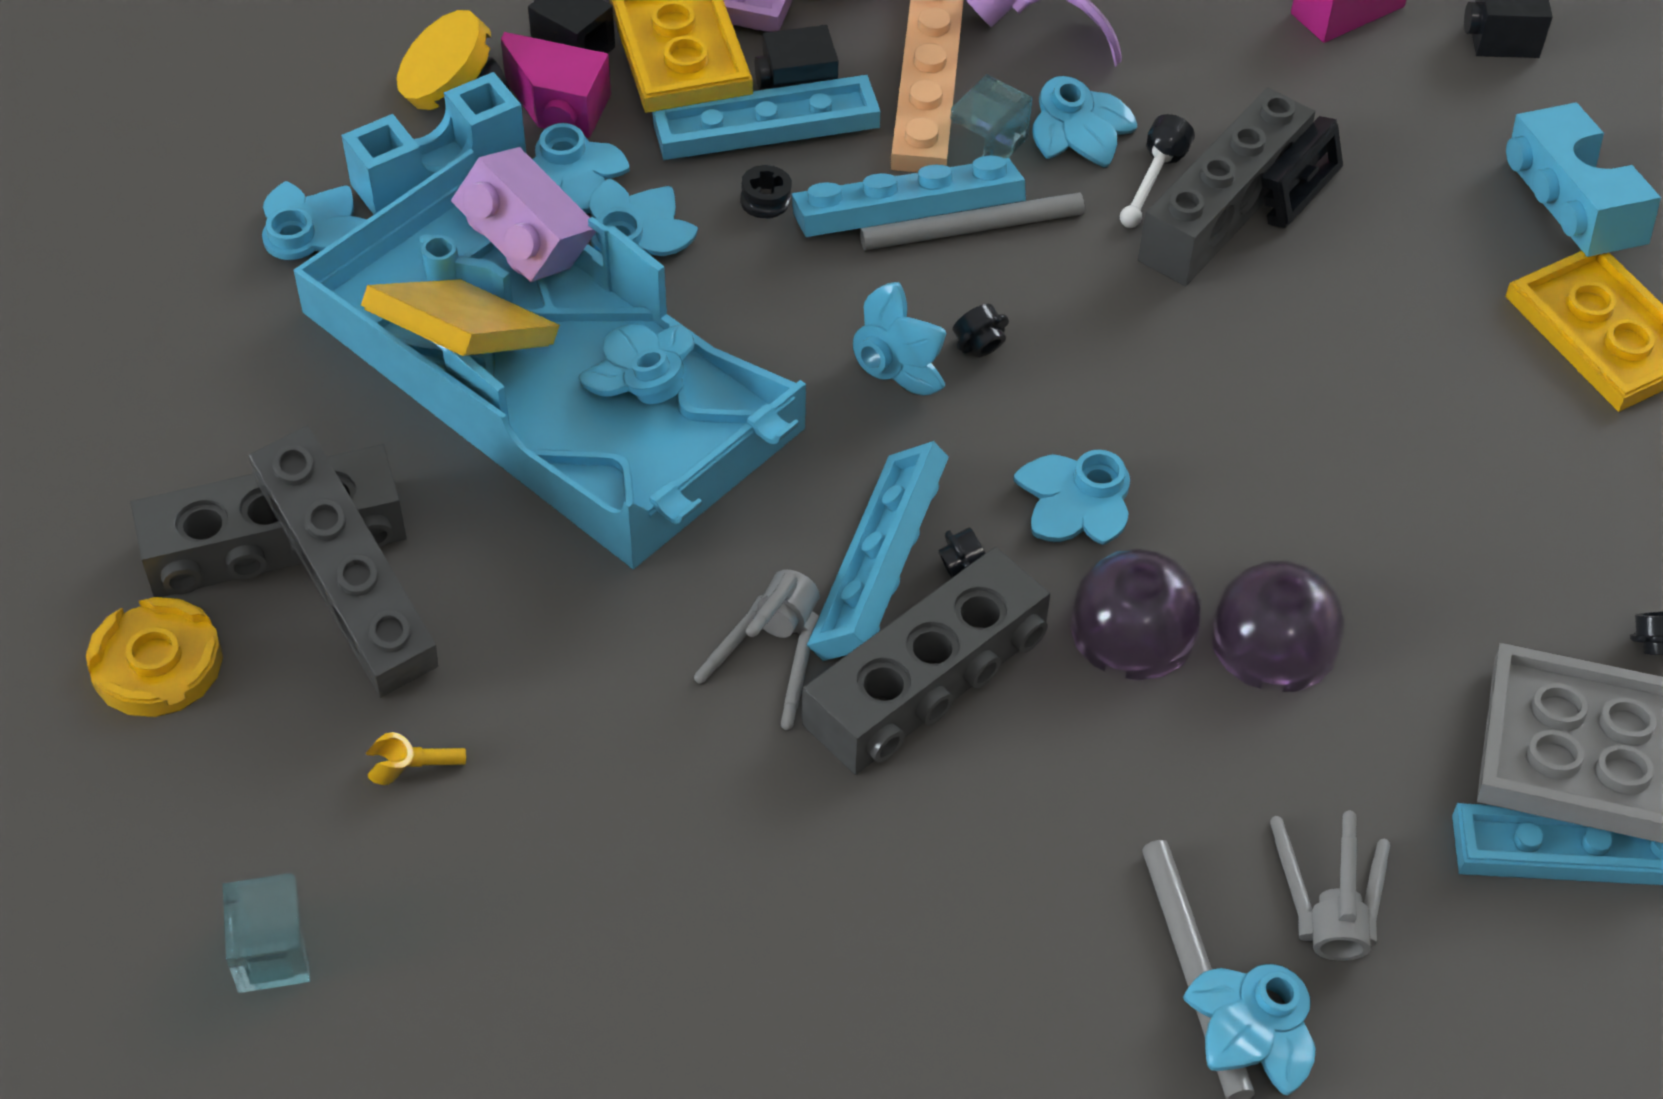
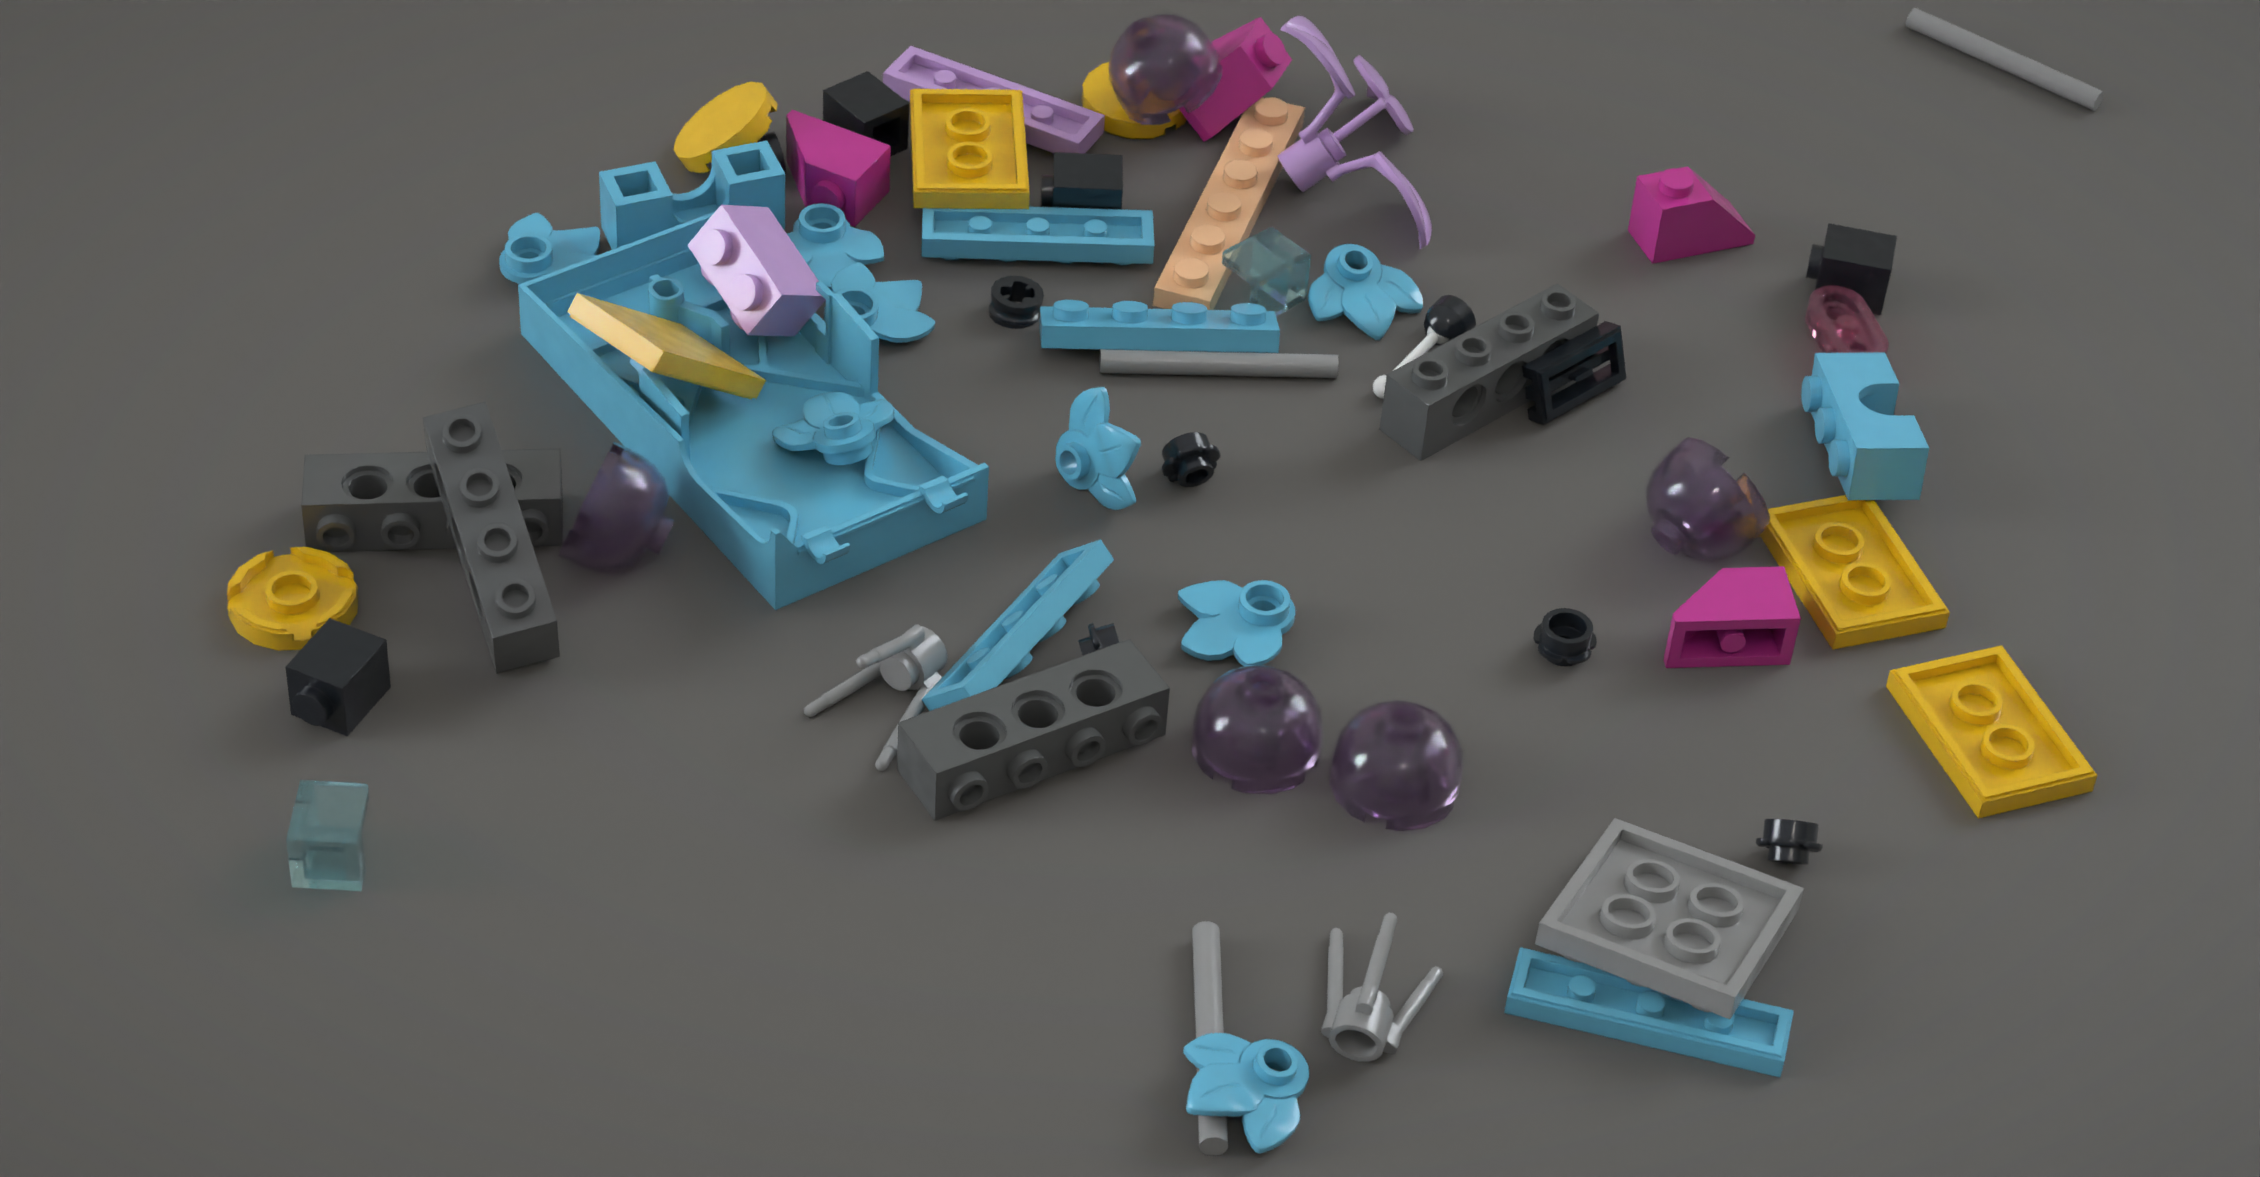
camera: 10 degrees right, 10 degrees down
(226, 744) = (338, 677): none -> black brick
(402, 755) = (495, 715): yellow hand -> none
(459, 503) = (620, 515): none -> clear purple cylinder
(1384, 452) = (1565, 637): none -> black plate
(1467, 290) = (1701, 506): none -> clear purple cylinder
(1520, 77) = (1843, 322): none -> clear pink plate
(1538, 404) = (1736, 621): none -> dark pink slope

